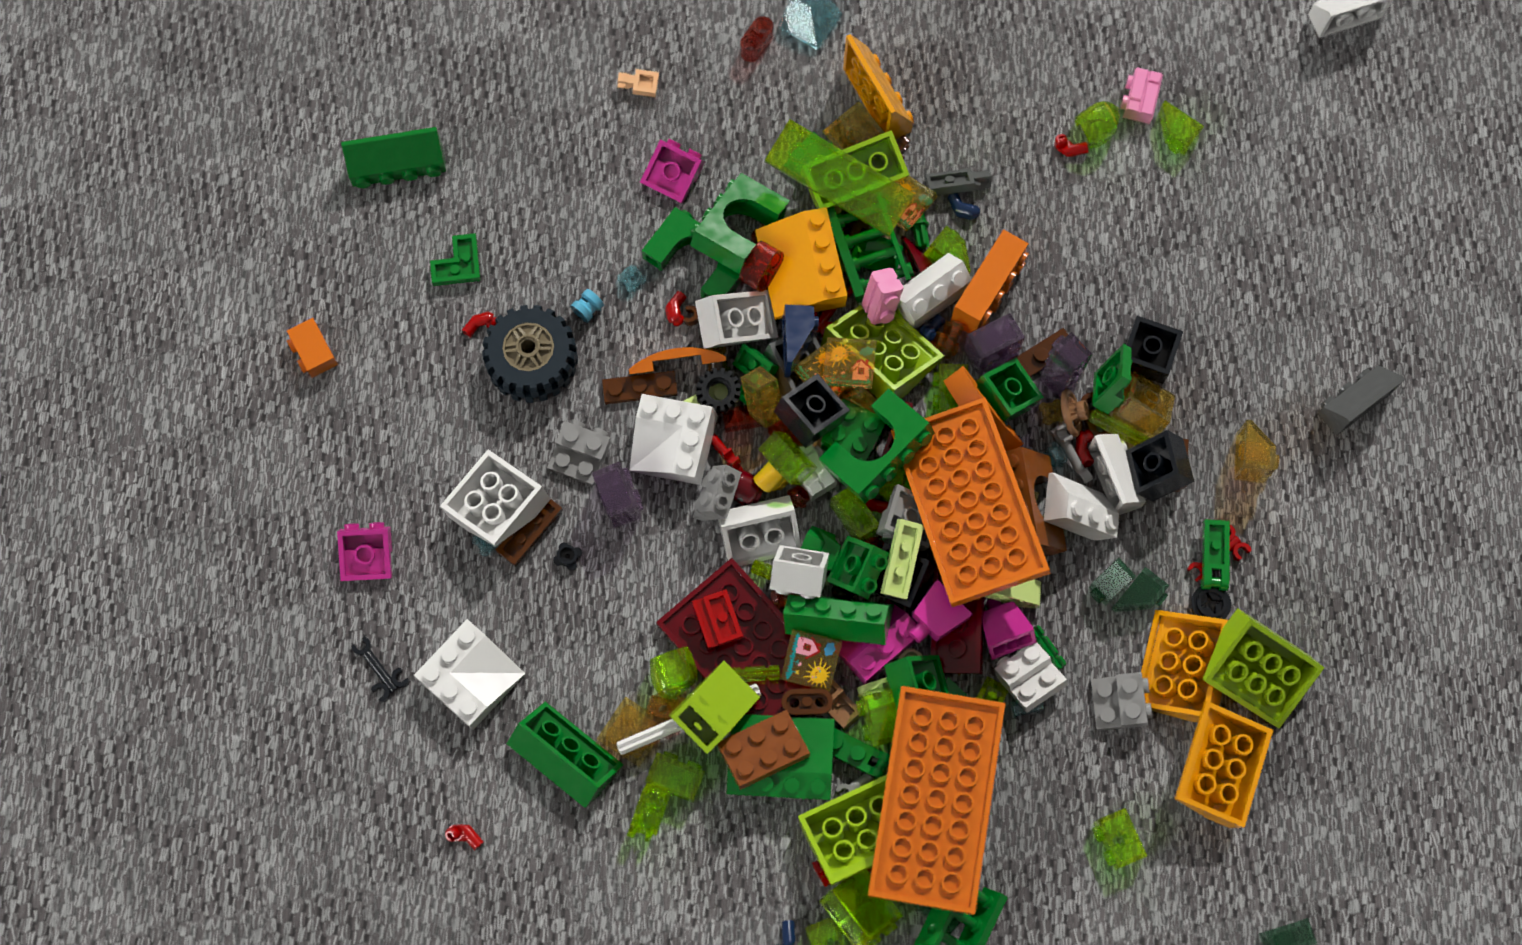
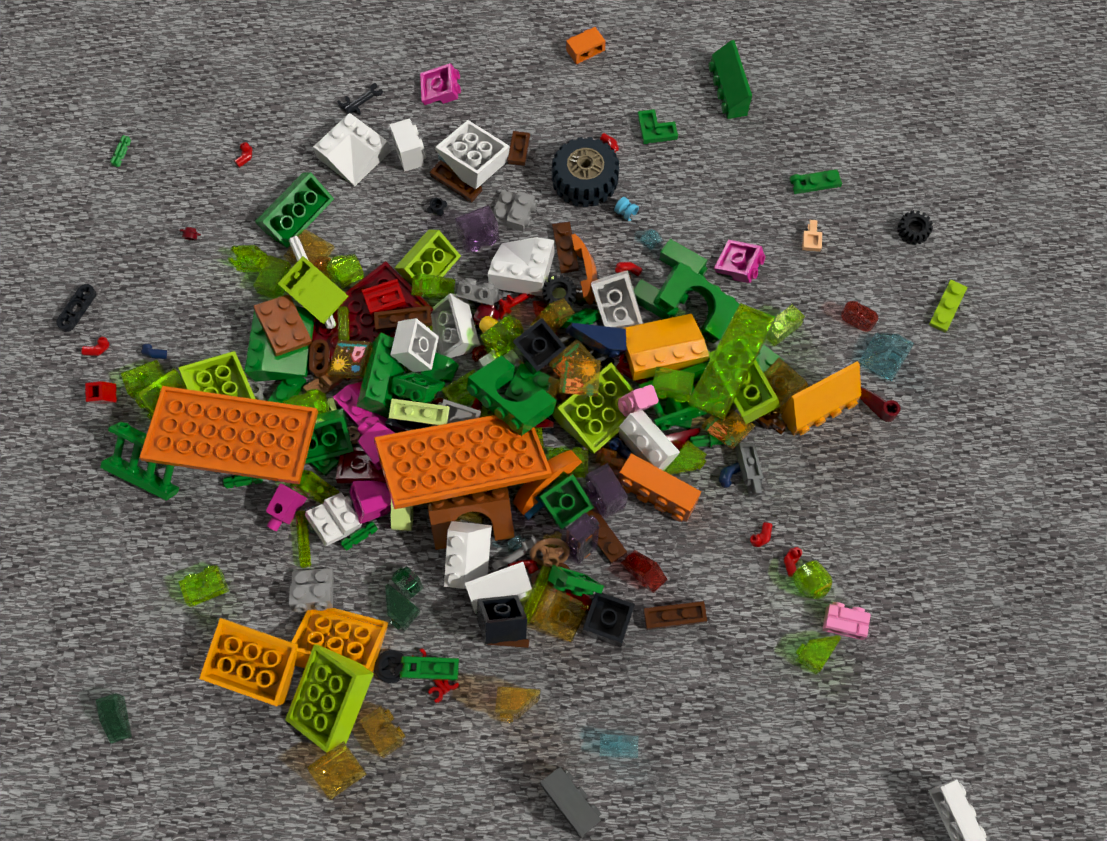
camera: 90 degrees right, 5 degrees down
(473, 591) = (408, 144): none -> white brick
(477, 442) = (519, 148): none -> reddish brown plate
(554, 69) = (816, 181): none -> green plate
(598, 904) = (189, 233): none -> dark red plate
(656, 566) = (429, 256): none -> lime slope
(704, 553) = (432, 286): none -> clear neon green brick
(751, 593) = (389, 319): none -> reddish brown plate
(761, 266) = (658, 314): clear red beam -> none
(764, 123) = (785, 324): none -> clear neon green brick
(862, 253) = (673, 384): none -> clear neon green brick
(878, 29) = (879, 405): none -> dark red piece
(1010, 738) = (287, 501): none -> dark pink torso
(1041, 175) = (763, 537): none -> red arm
(1052, 718) = (303, 539): none -> clear neon green axle
(1087, 308) = (645, 570): none -> clear red slope
(1139, 278) = (675, 615): none -> reddish brown plate
(1294, 345) = (618, 746): none -> clear light blue hips
(1303, 605) = (372, 724): none -> clear yellow brick
(1339, 659) = (336, 770): none -> clear yellow plate

